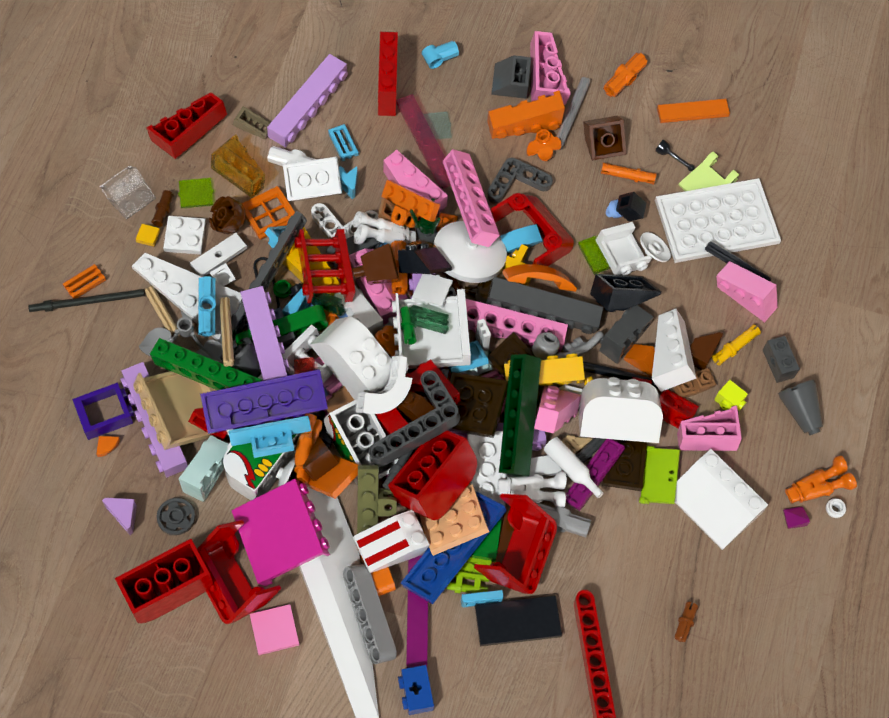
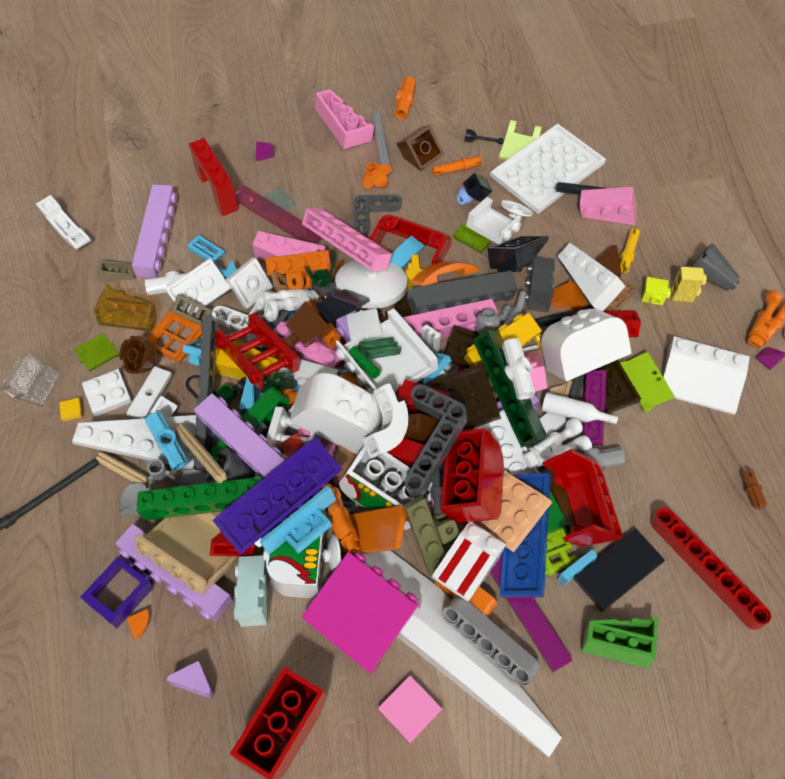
camera: 25 degrees left, 5 degrees down
(82, 279) = (28, 479): orange tile -> none
(162, 208) = (72, 379): reddish brown pin -> none
(175, 516) = (248, 654): dark grey wheel -> none
(188, 125) = (55, 298): red wedge -> none
(230, 589) = (347, 697): red windscreen -> none
(231, 52) = (62, 223): none -> white slope
(300, 192) = (193, 304): none -> dark tan slope
(319, 460) = (360, 522): reddish brown slope -> none
(359, 195) = (249, 281): none -> white plate
(423, 700) = (589, 694): blue brick -> none
(435, 56) = (244, 149): medium azure piece -> none
(453, 67) = (264, 151): none -> magenta slope
(476, 675) = (622, 641): none -> bright green wedge
(511, 77) = (317, 136): dark grey slope -> none
(527, 117) = (349, 159): orange wedge -> none
(532, 402) = (518, 369): none -> white piece
(693, 110) = (473, 101): orange tile -> none
(713, 432) = (662, 324): bright pink wedge -> none
(764, 407) = (688, 284): none -> light yellow brick
(780, 359) = (670, 243): dark grey brick -> none

